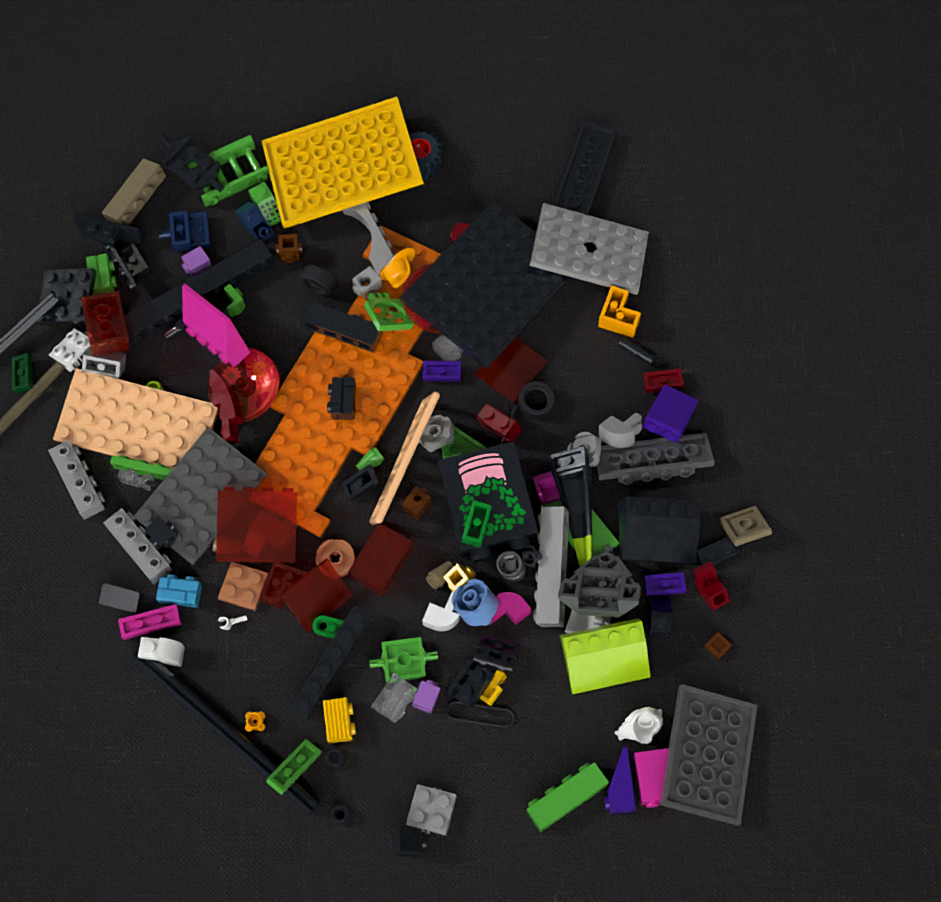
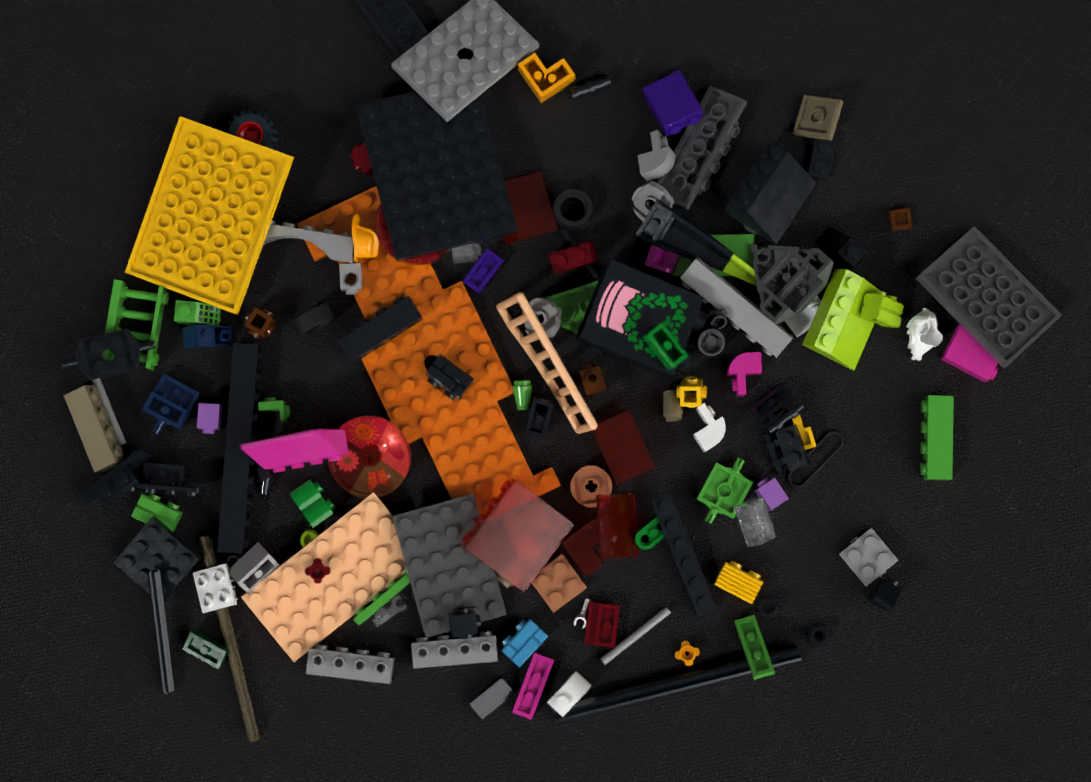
camera: 55 degrees left, 15 degrees up
(105, 323) = (222, 543): clear red brick -> none
(127, 400) = (311, 571): none -> dark red plate
(152, 200) = (111, 416): none -> light grey bar
(181, 371) = (312, 503): none -> green brick
(230, 409) = (372, 482): dark red slope -> none
(232, 640) = (601, 624): none -> dark red plate
(242, 672) = (635, 635): none -> light grey bar
(380, 320) = (380, 276): bright green piece -> none
(475, 603) = (725, 396): medium blue brick -> none
(620, 793) = (965, 391): dark purple slope -> none
(634, 677) = (882, 309): none -> lime brick
(655, 380) = (633, 86): dark red plate -> none
(665, 584) = (817, 223): dark purple plate -> none
(709, 586) = (849, 188): dark red brick -> none

